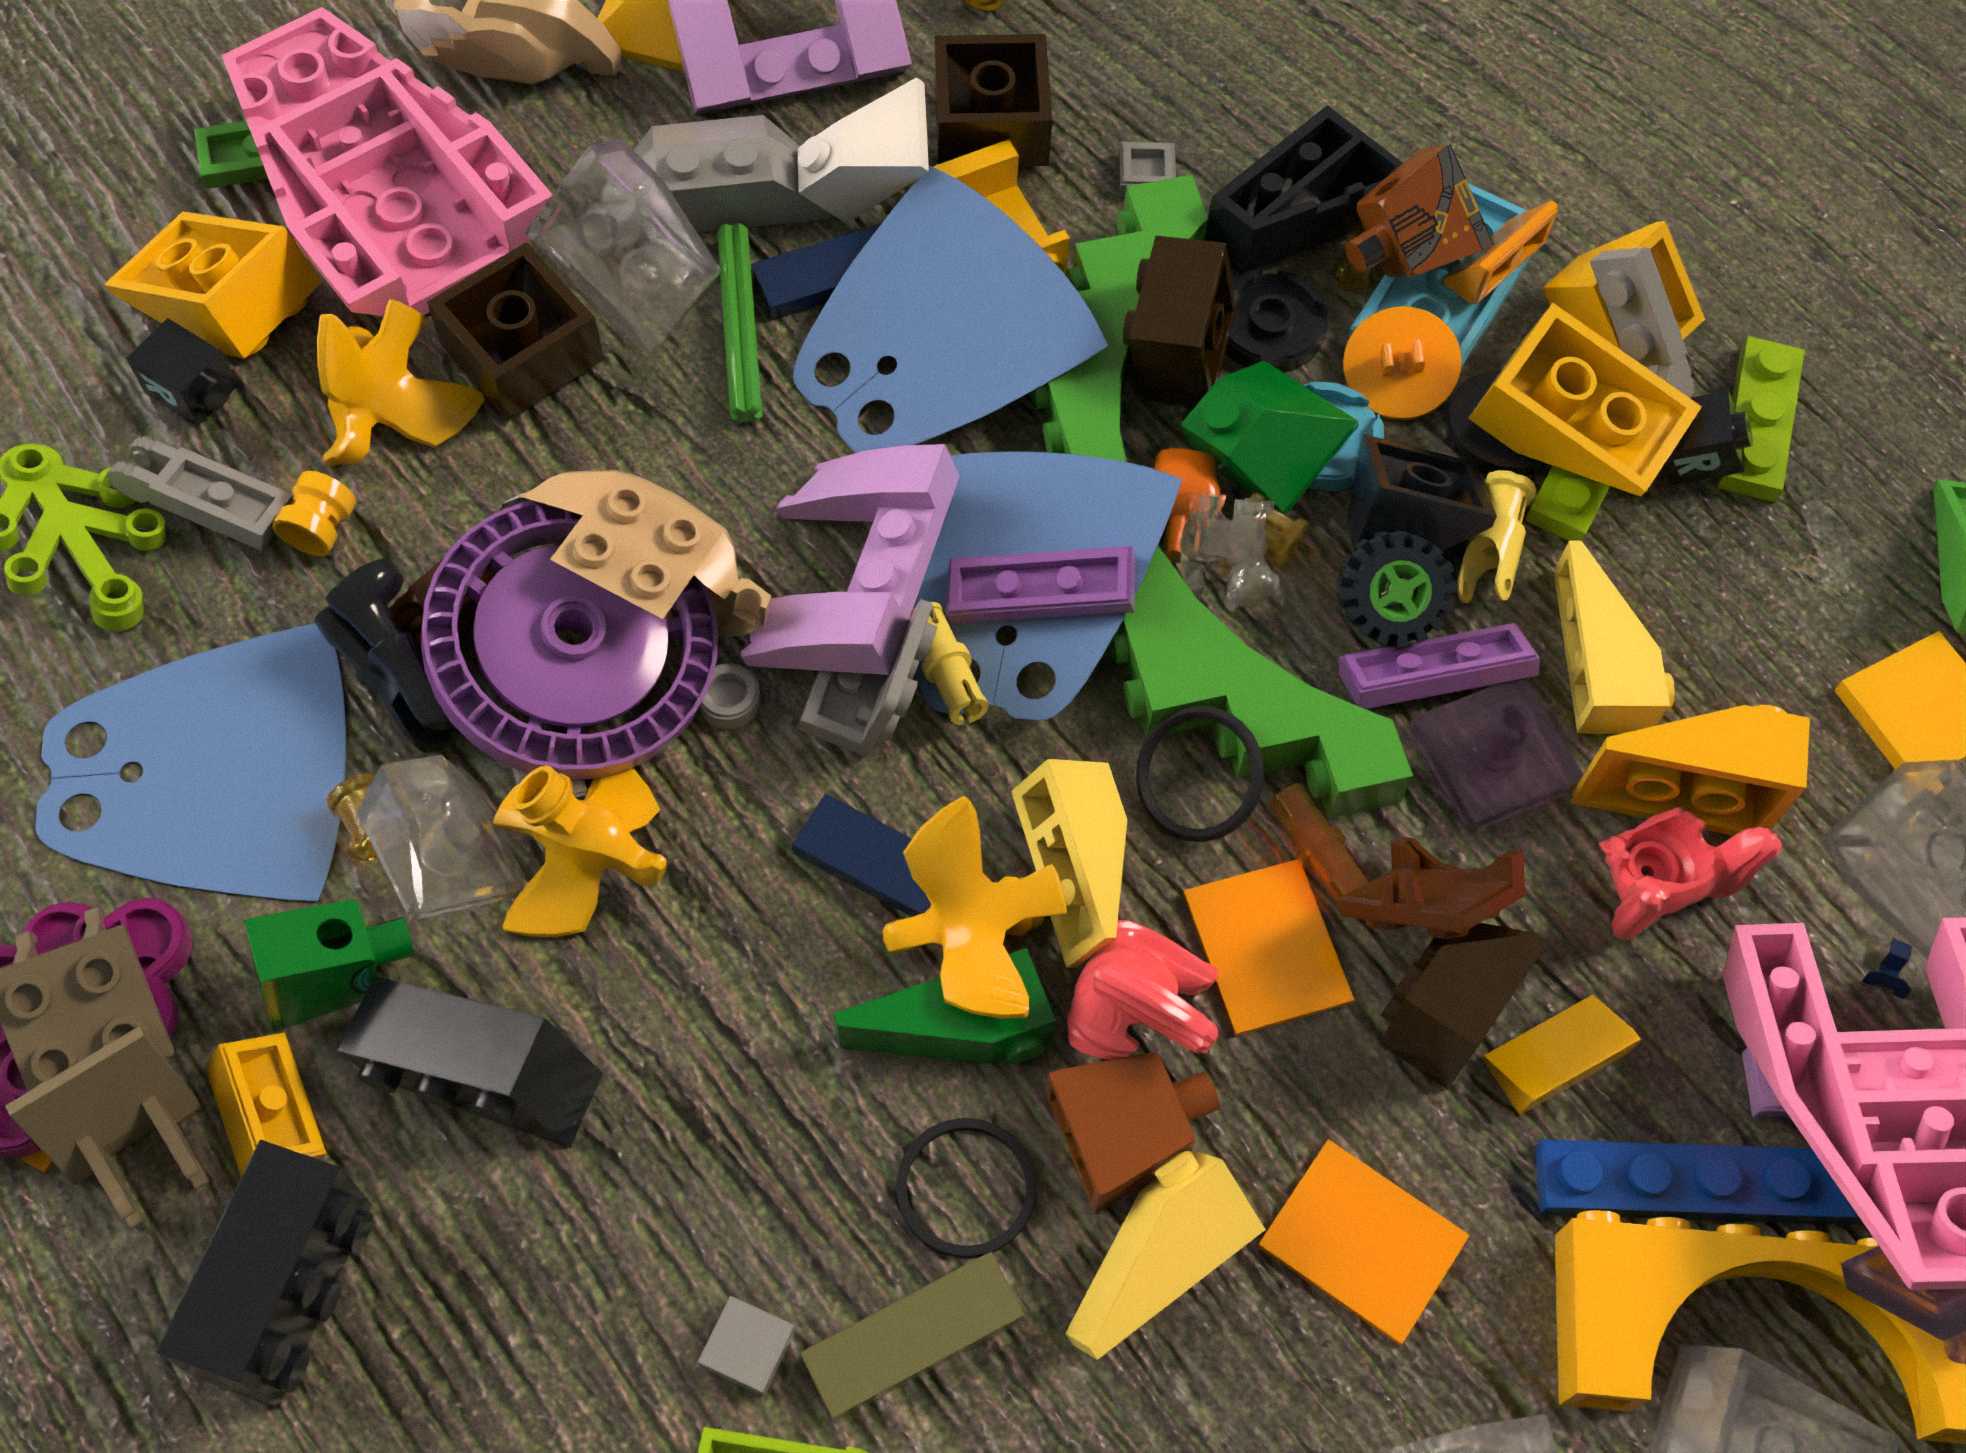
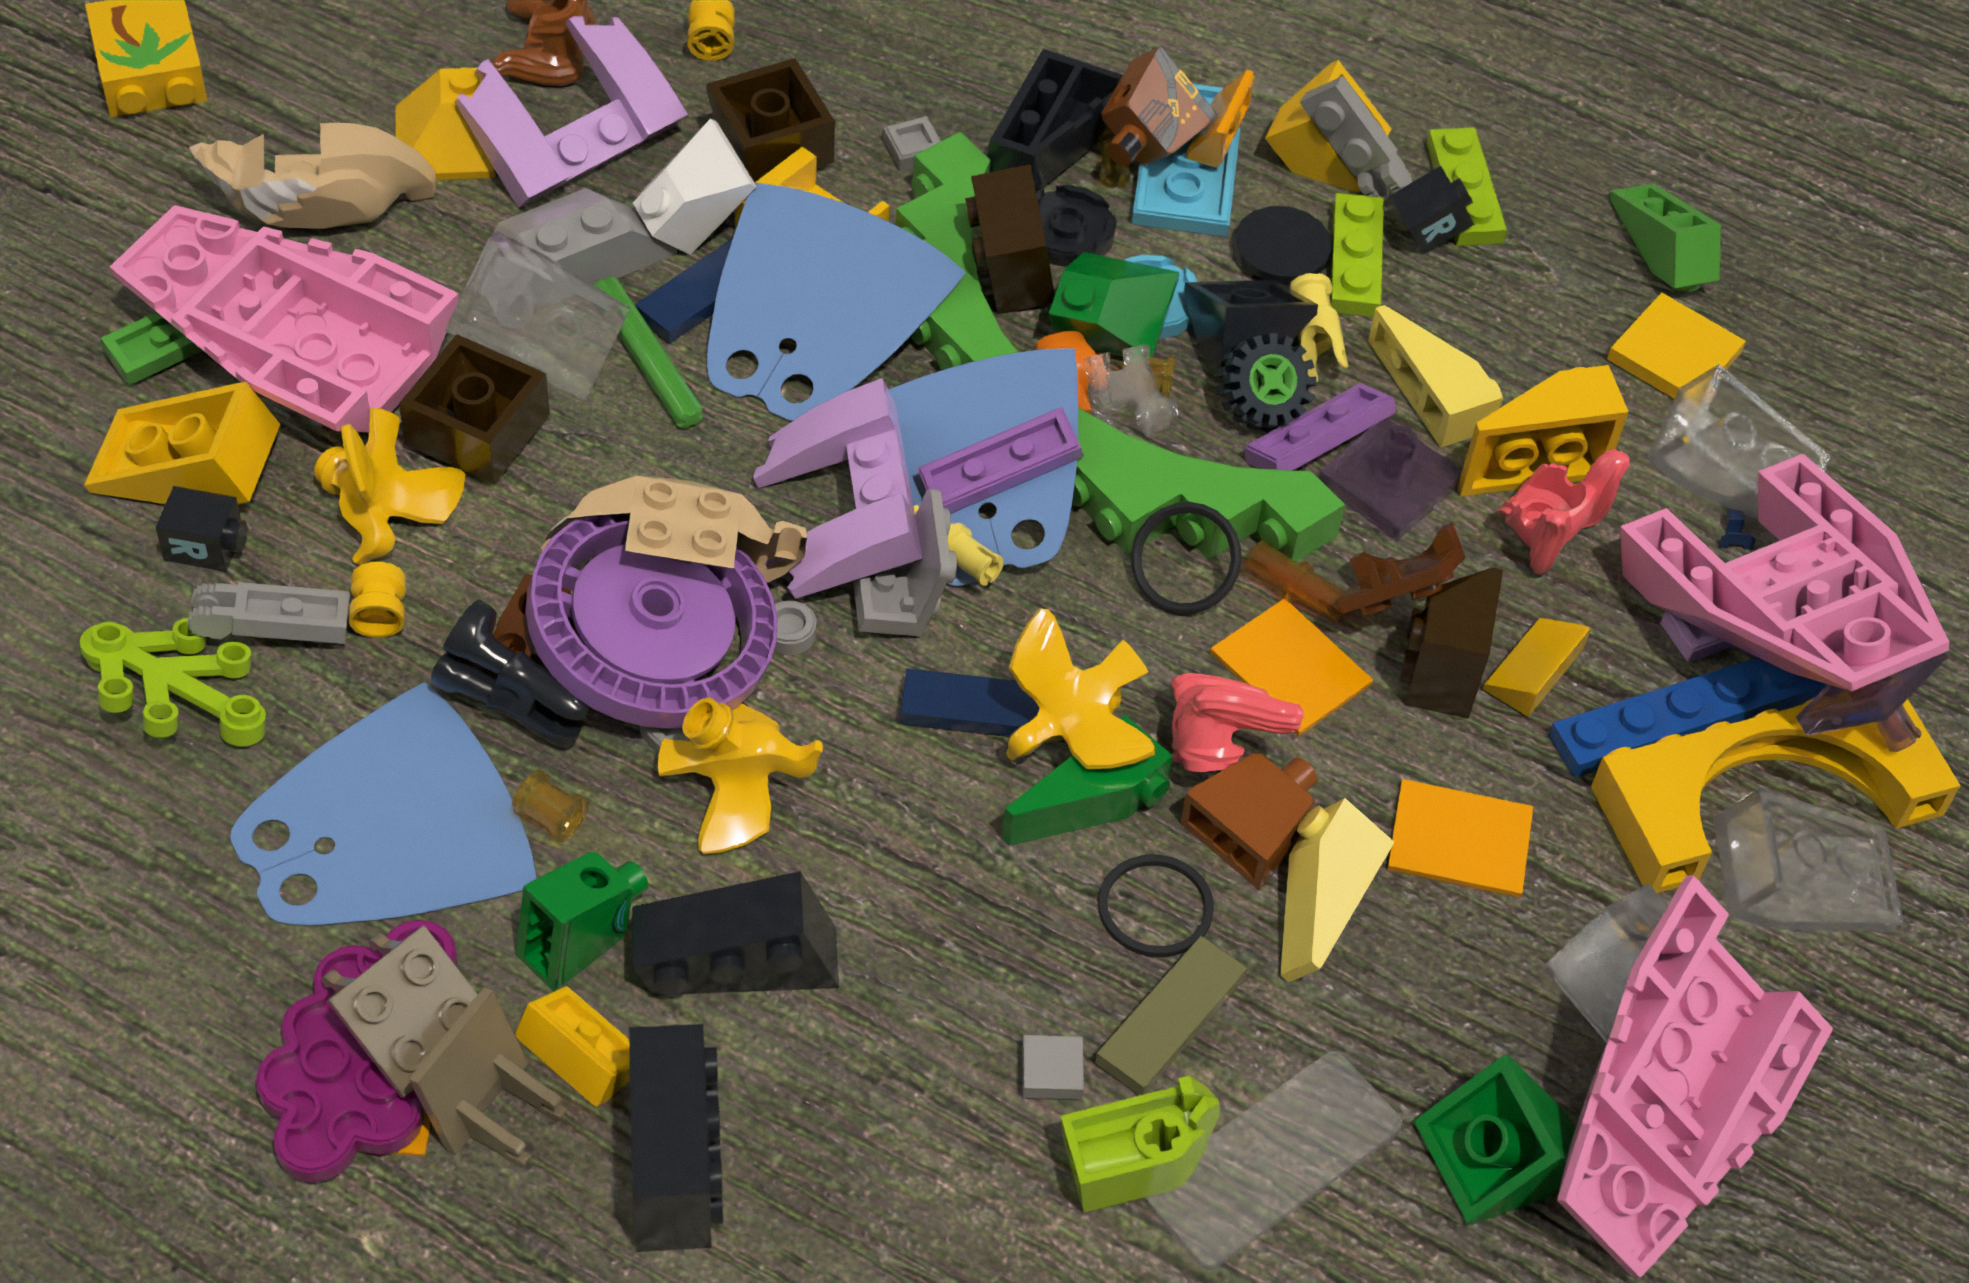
camera: 25 degrees left, 10 degrees down
(437, 838) = (625, 791): clear slope -> none
(1080, 827) = (1105, 610): light yellow slope -> none
(1403, 362) = (1186, 224): light orange piece -> none
(1585, 406) = (1339, 209): yellow slope -> none

